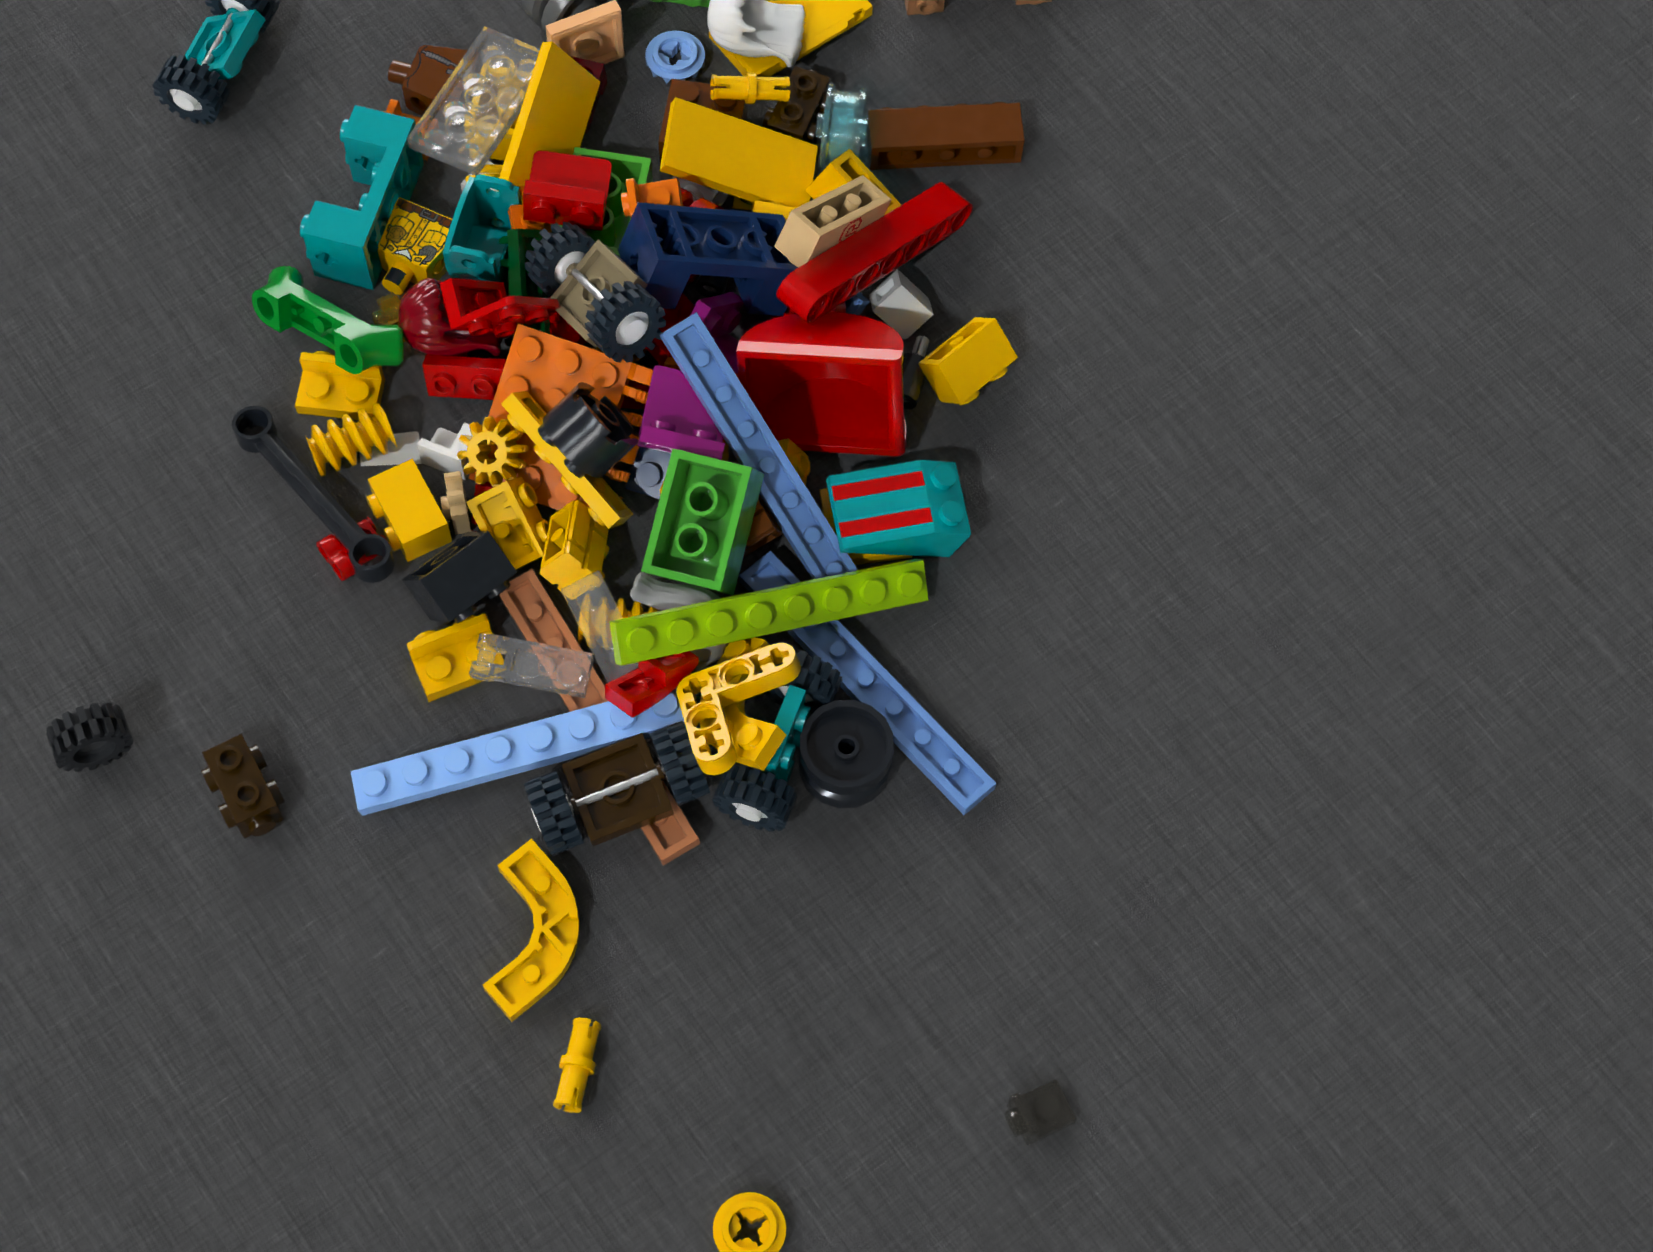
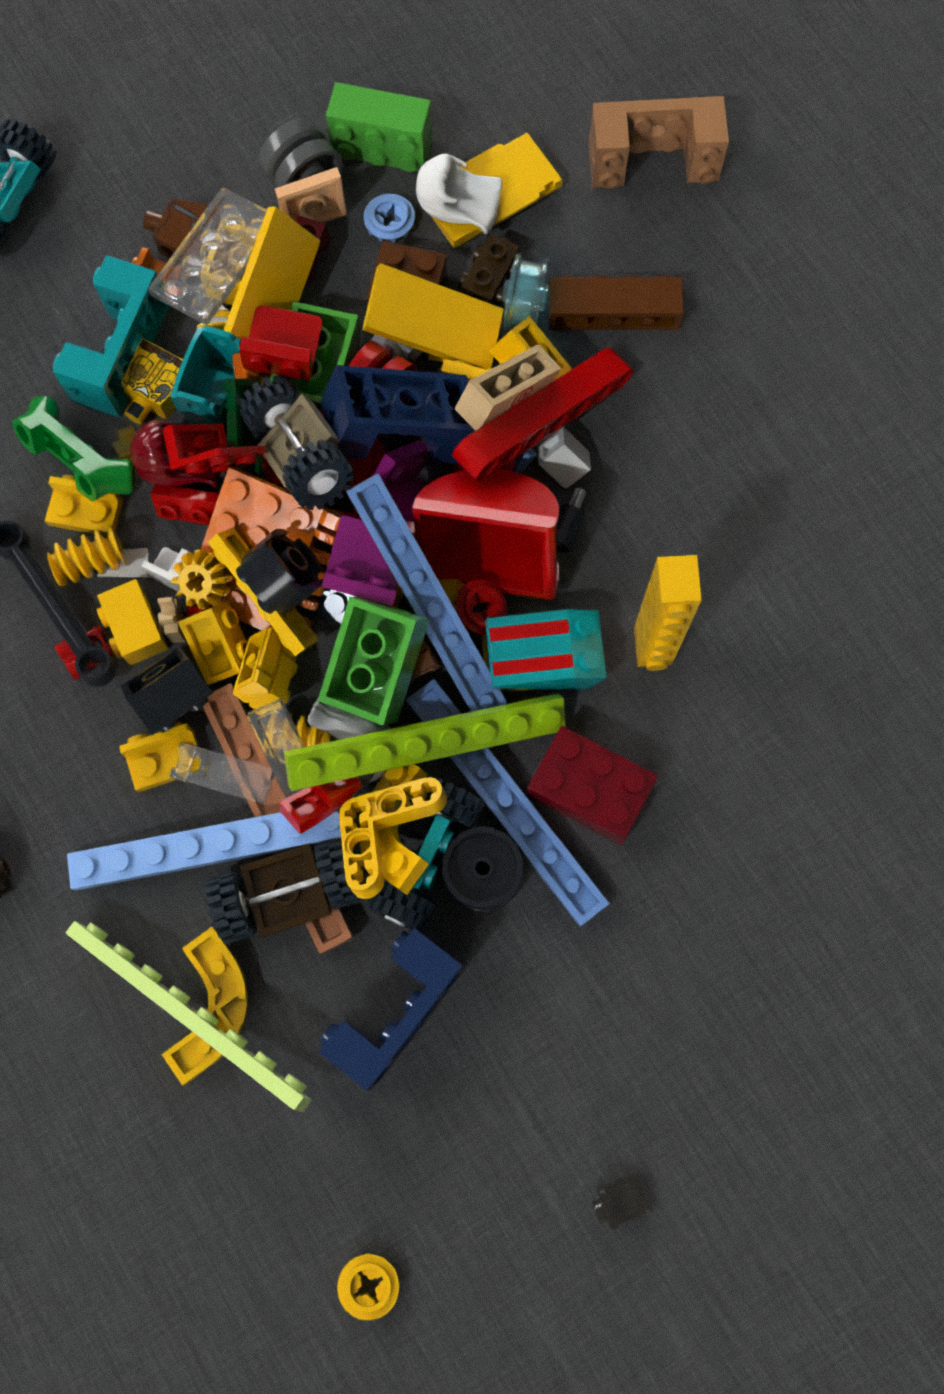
camera: 10 degrees right, 10 degrees up
(528, 939) = (200, 1022): none -> yellowish green plate
(577, 1065) = (235, 1130): yellow pin -> none
(659, 192) = (354, 354): orange bracket -> none
(750, 88) = (448, 254): yellow pin -> none
(797, 868) = (358, 1054): none -> dark blue plate
(819, 452) = (479, 592): none -> red gear
(963, 655) = (591, 785): none -> dark red brick
(968, 361) = (617, 515): yellow brick -> none
(1034, 444) = (667, 611): none -> yellow brick

